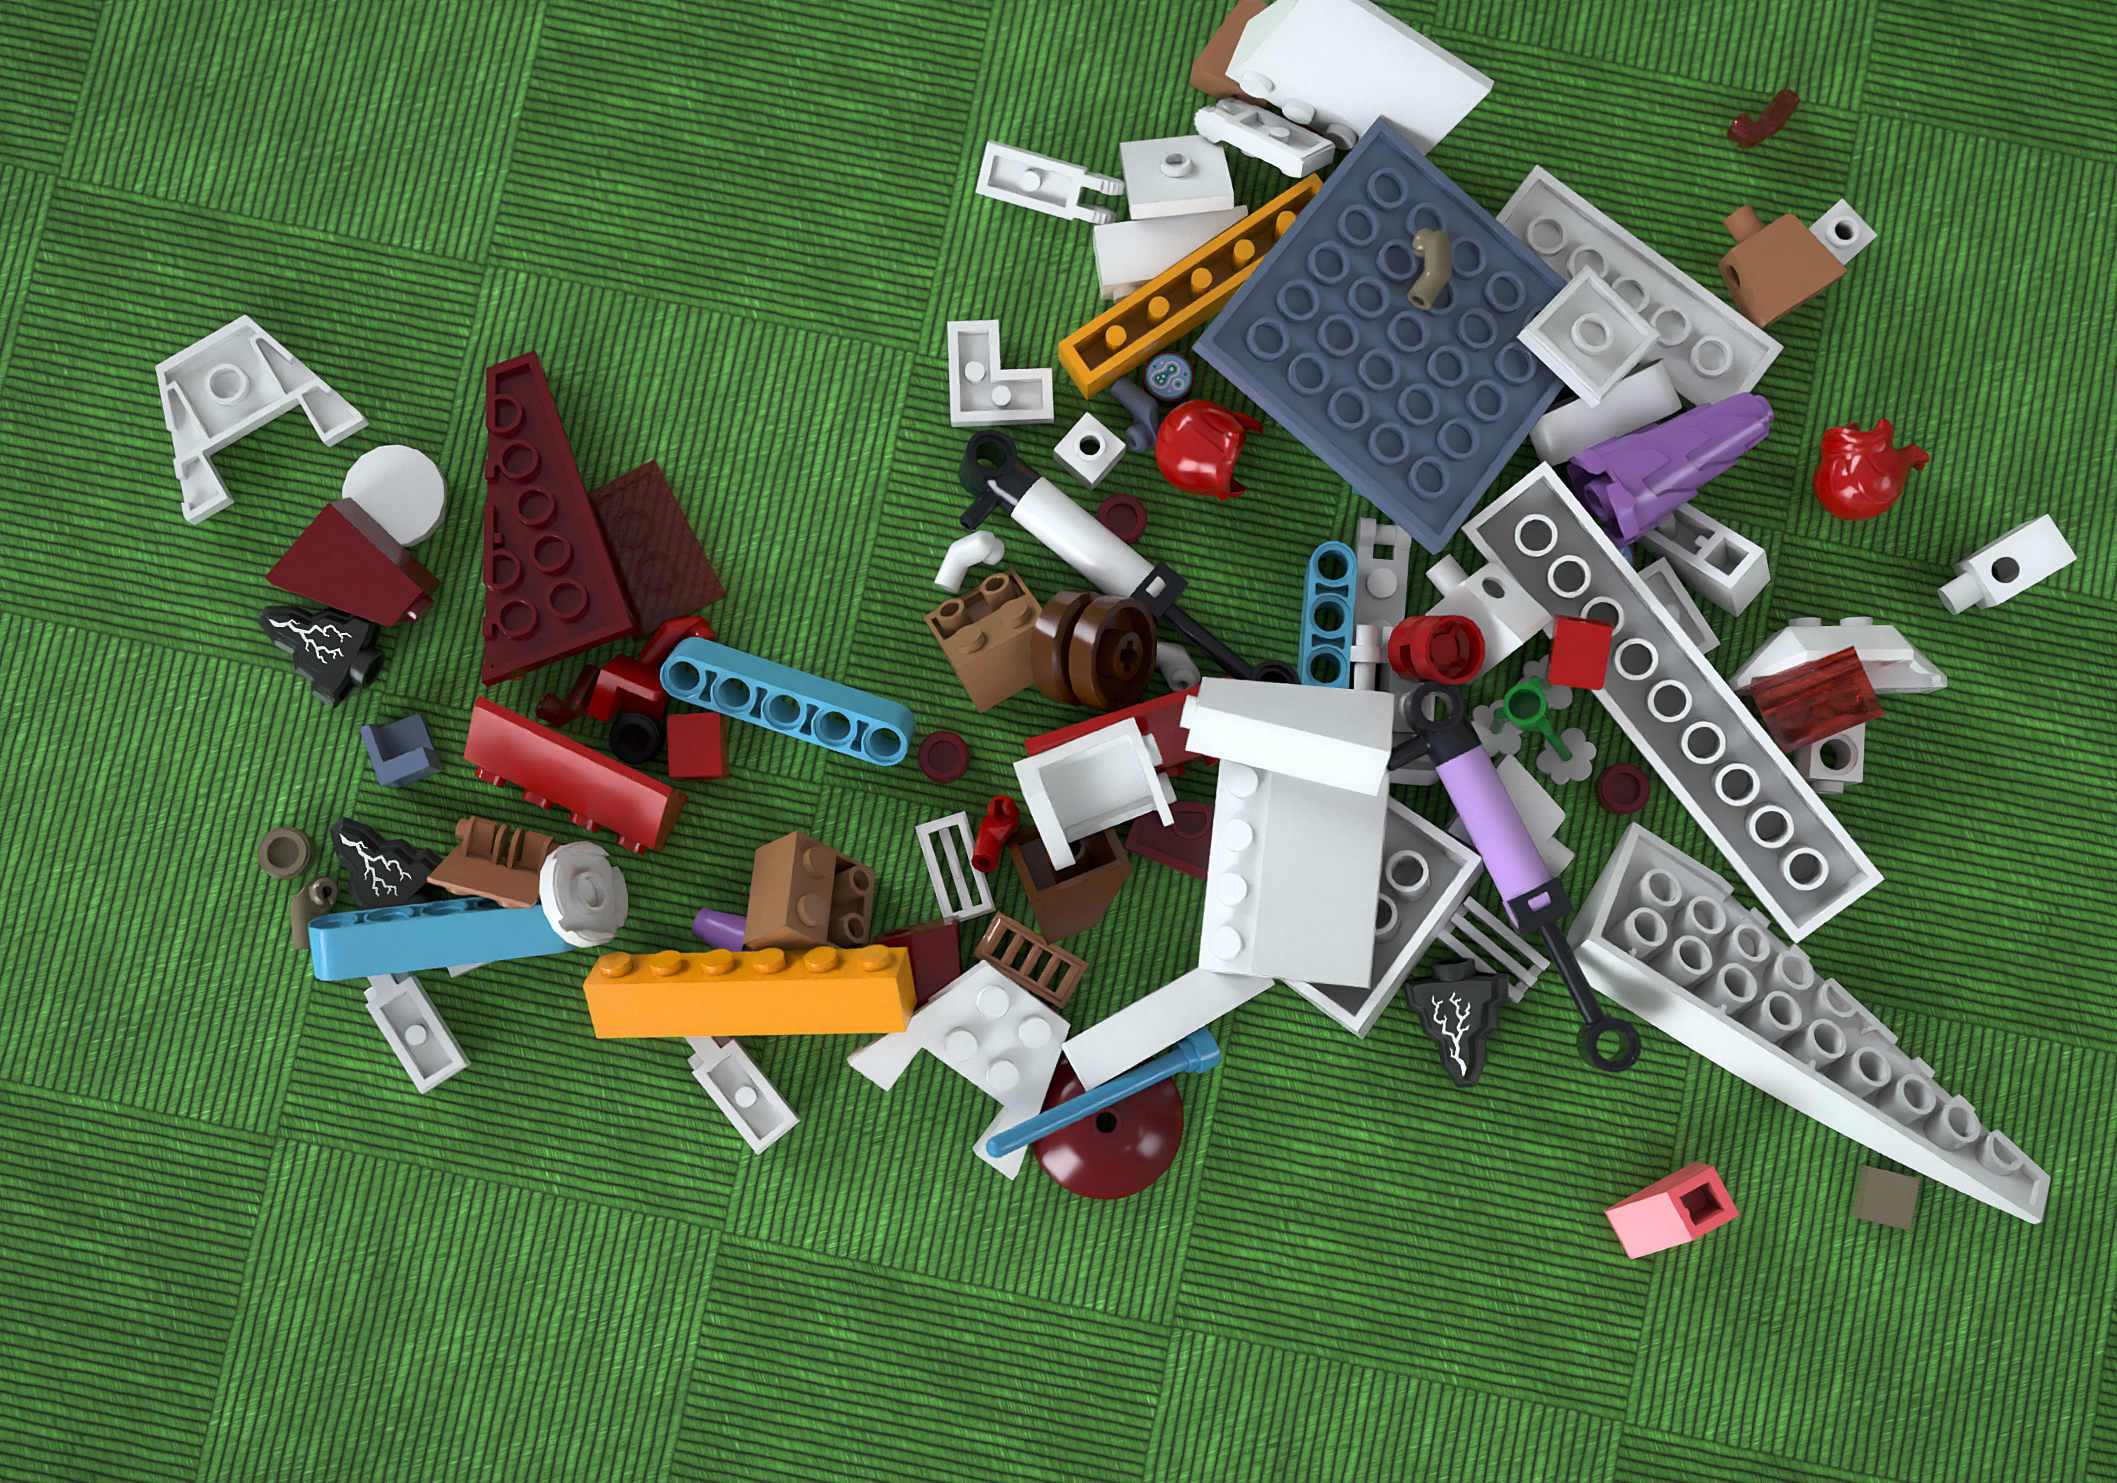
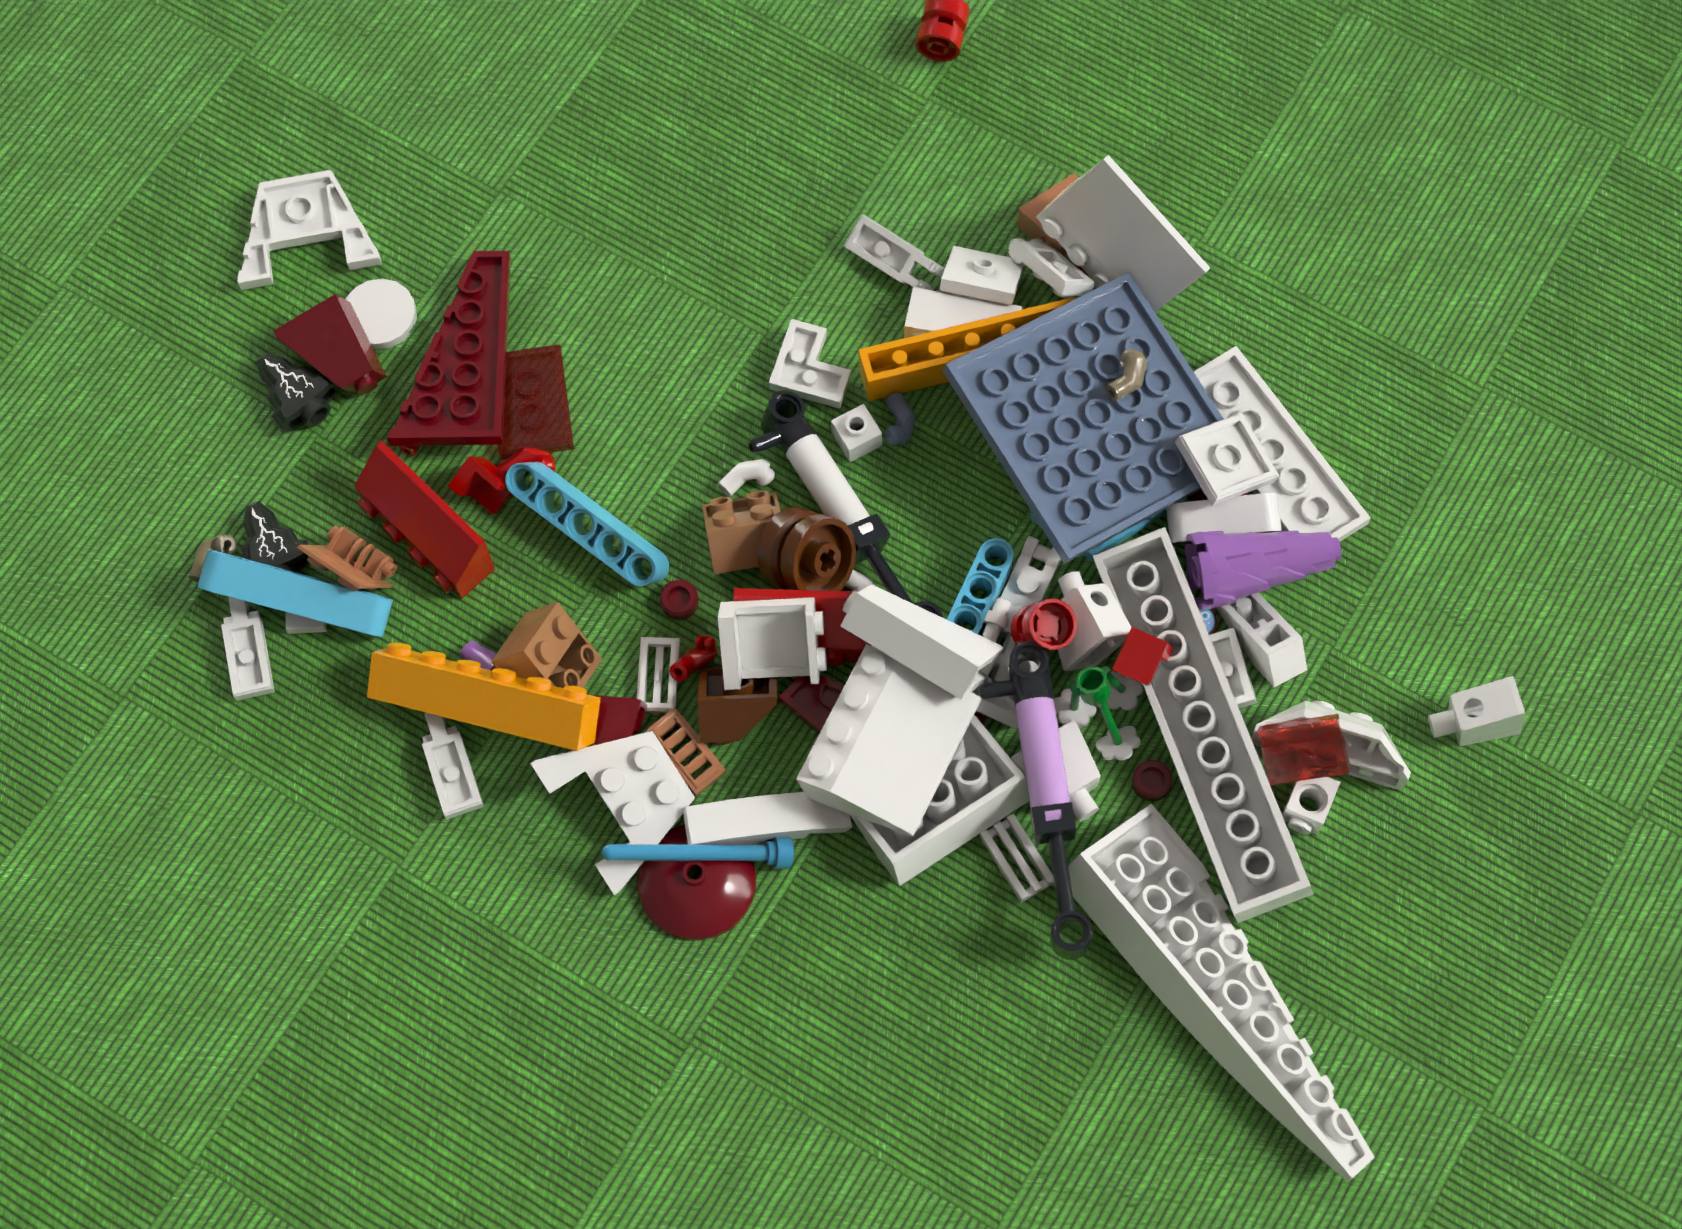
camera: 25 degrees right, 15 degrees down
(286, 853) = (211, 514): dark tan tile -> none
(401, 751) = (314, 475): sand blue panel -> none
(573, 705) = (442, 480): clear red arm -> none
(583, 894) = (397, 599): white tile -> none
(637, 737) = (477, 515): black tile -> none
(698, 747) = (513, 535): red panel -> none
(1124, 517) = (865, 484): dark red tile -> none
(1168, 377) = (930, 404): tile -> none
(1200, 447) = (935, 451): red hair -> none
(1459, 1013) = (975, 889): pearl dark grey rock -> none
(1672, 1211) = (1079, 1079): coral slope -> none
(1771, 121) = (1411, 371): clear red arm -> none
(1774, 266) = (1383, 465): nougat torso -> none
(1848, 226) = (1429, 470): white plate -> none
(1863, 470) = (1396, 616): red hair -> none
(1886, 1197) = (1247, 1133): dark tan tile -> none

